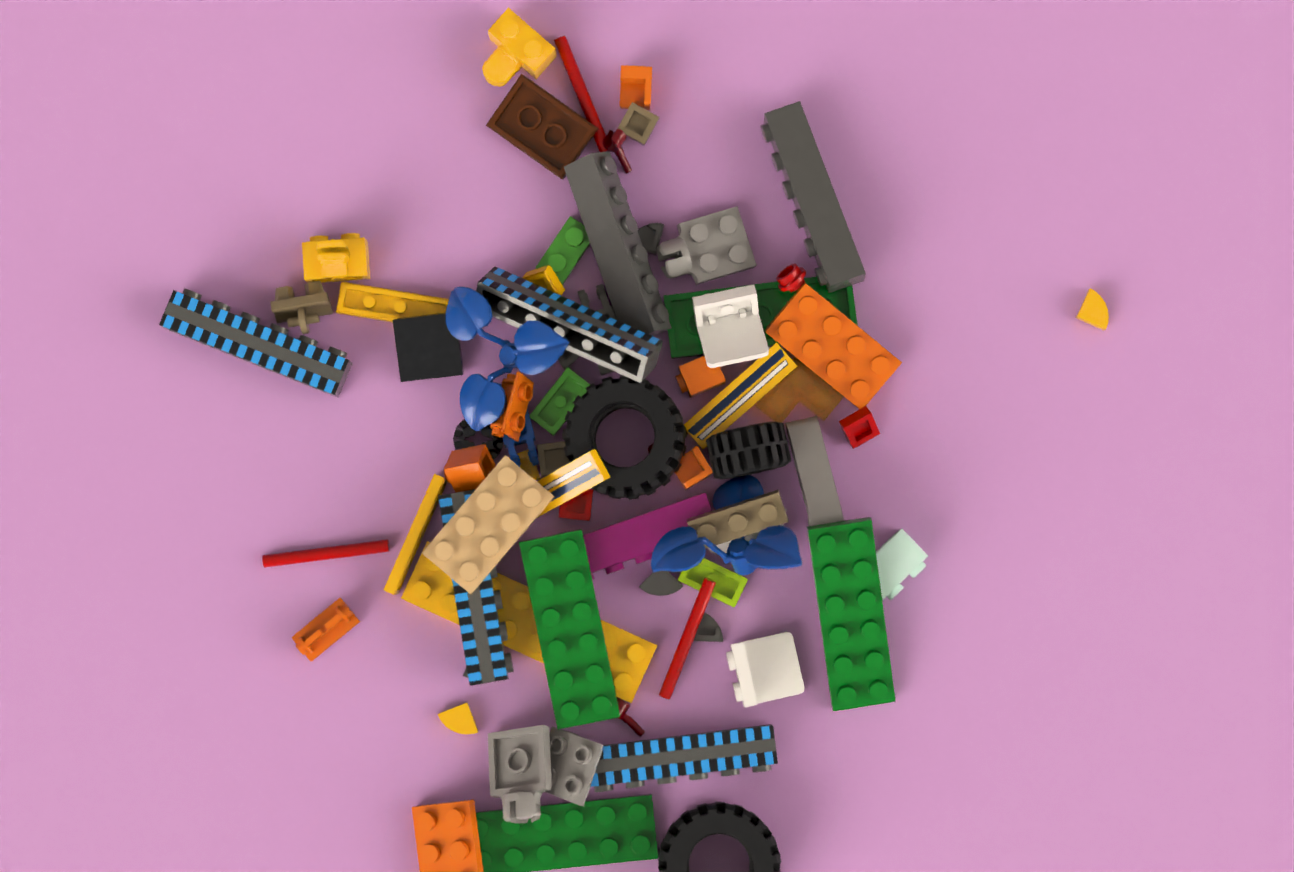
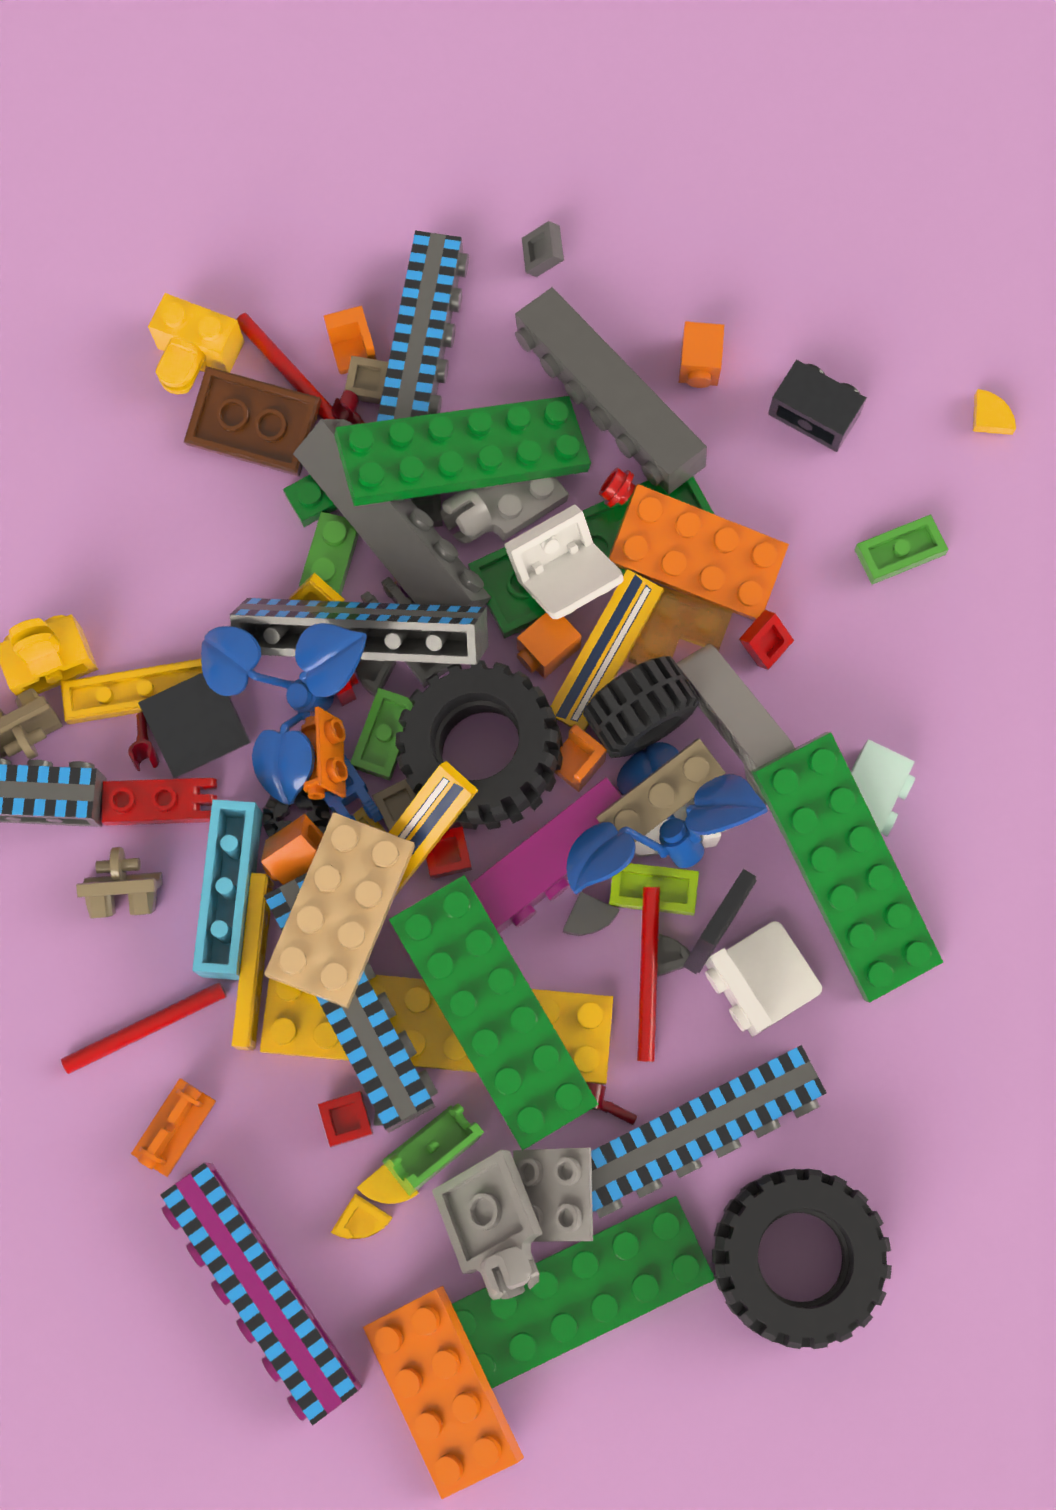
camera: 15 degrees left, 10 degrees down
(339, 443) = (100, 891): none -> dark tan hips
(350, 760) = (260, 1292): none -> brick
(383, 394) = (156, 801): none -> red hinge
(385, 350) = (142, 747): none -> dark red hand
(414, 478) = (225, 887): none -> medium azure brick
(433, 736) = (361, 1219): none -> yellow tile
(444, 665) = (345, 1119): none -> red plate
(497, 706) = (432, 1148): none -> bright green hinge
(562, 202) = (308, 500): none -> green plate
(684, 112) = (424, 327): none -> brick
(688, 210) = (461, 450): none -> green plate
(748, 622) = (720, 921): none -> black tile
(805, 62) = (542, 249): none -> dark grey plate
(893, 190) = (701, 354): none -> orange brick
(965, 259) = (817, 405): none -> black brick
(984, 392) = (901, 549): none -> bright green plate

